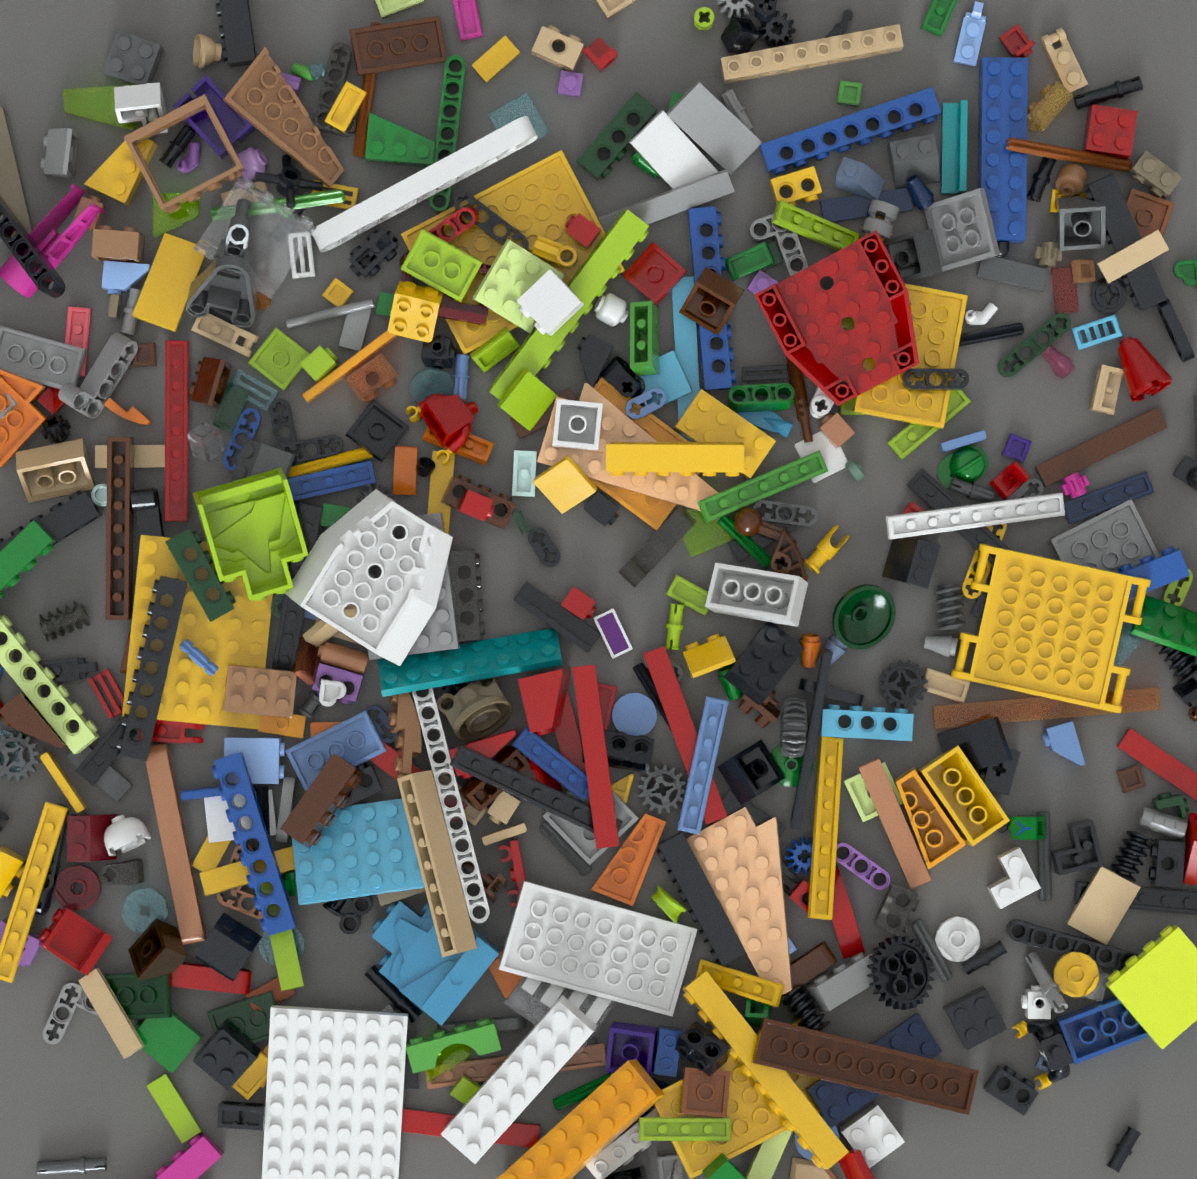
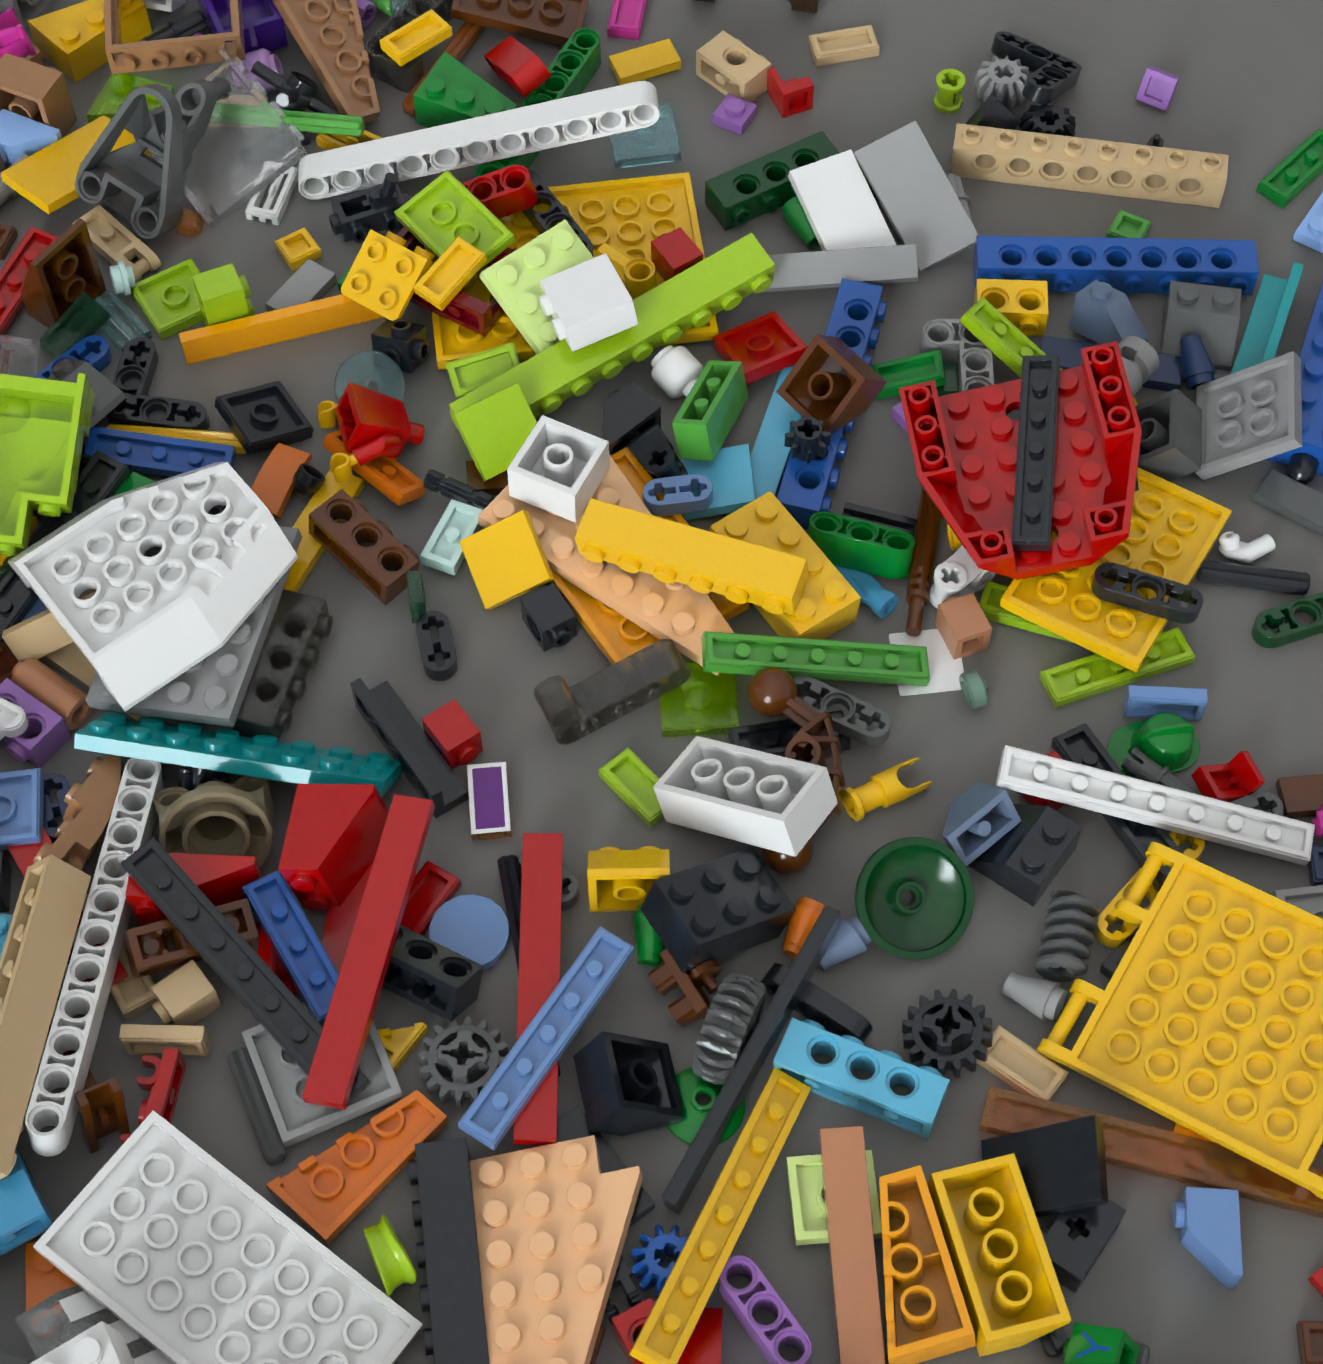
camera: 20 degrees right, 30 degrees down
(245, 363) = (122, 278): none -> light aqua plate
(329, 313) = (276, 261): light grey bar -> none
(358, 378) = (291, 350): clear orange brick -> none
(420, 105) = (517, 66): none -> red beam
(455, 304) = (450, 273): none -> yellow tile
(461, 375) = (422, 387): medium blue axle -> none
(476, 505) = (354, 528): red brick -> none
(515, 443) = (456, 490): none -> black axle
(674, 626) = (592, 820): lime pin -> none
(713, 339) = (807, 439): none -> black gear
(746, 542) = (753, 722): green axle -> none
(848, 314) = (1036, 453): none -> black tile
(882, 558) = (978, 820): none -> sand blue slope
(1016, 448) = (1254, 740): dark purple tile -> none

